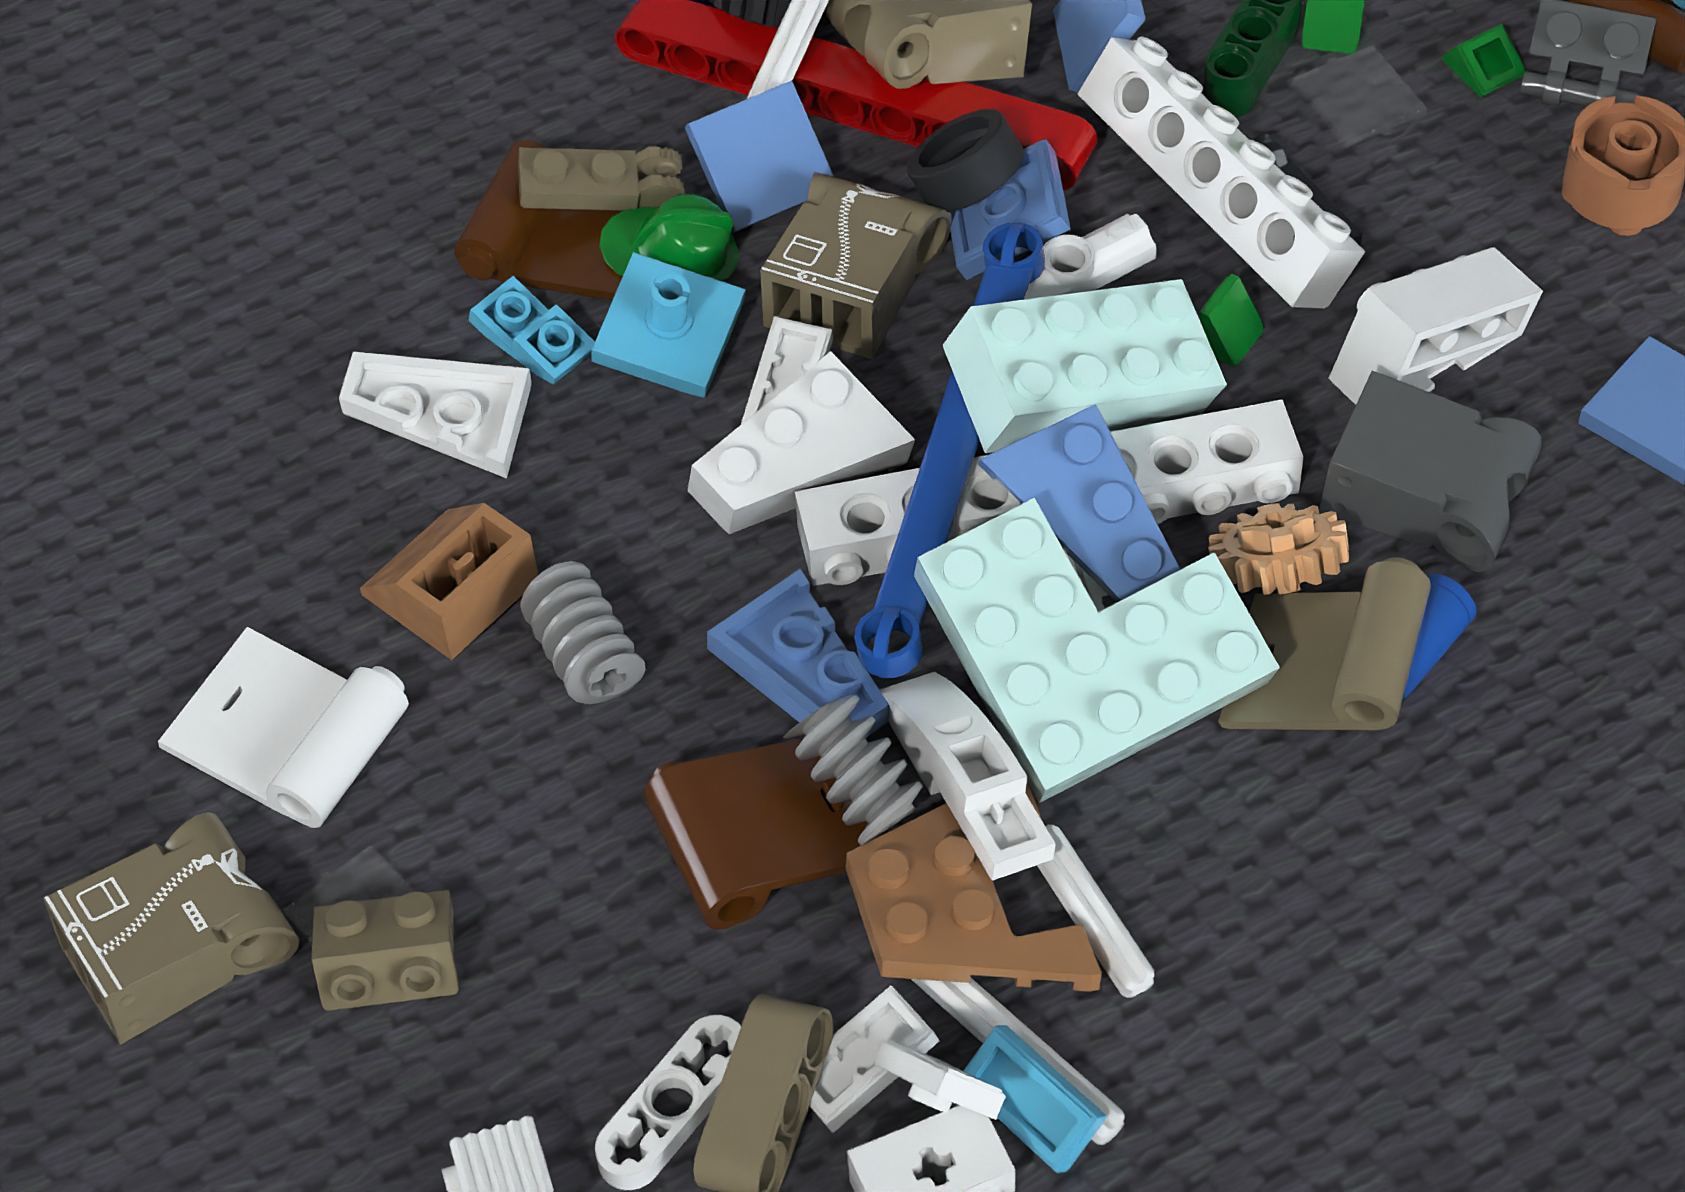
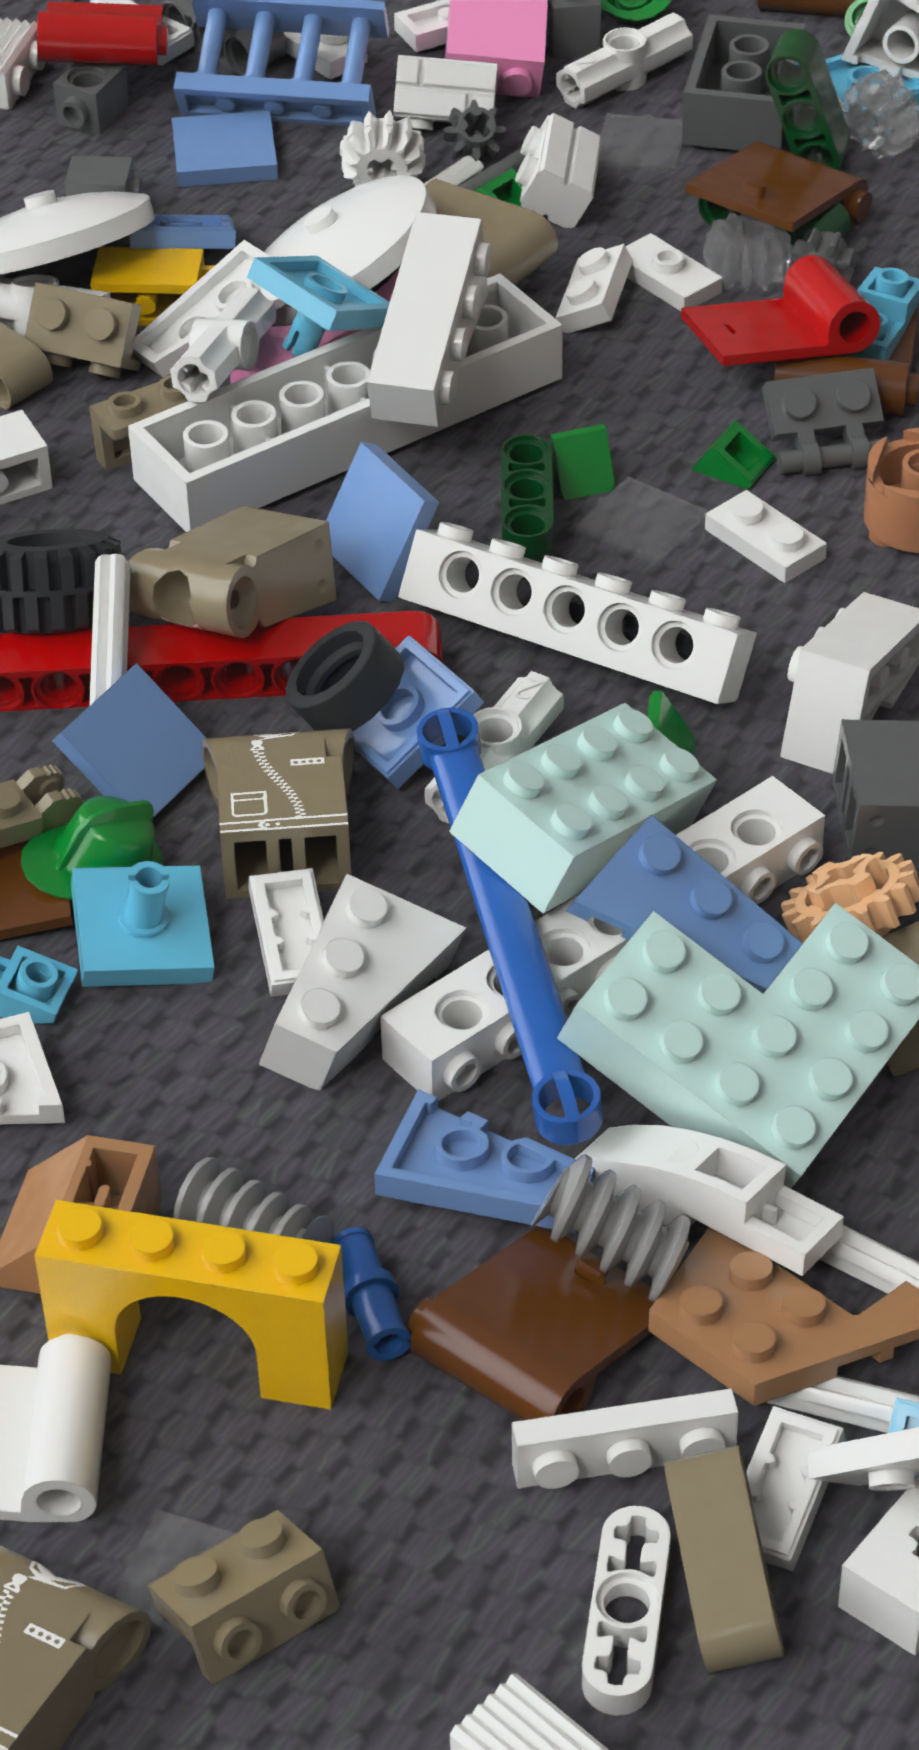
camera: 30 degrees left, 10 degrees down
(437, 642) = (274, 1286): none -> yellow arch
(644, 734) = (372, 1295): none -> blue pin
(759, 957) = (621, 1438): none -> white plate
(1460, 152) = (765, 536): none -> white plate

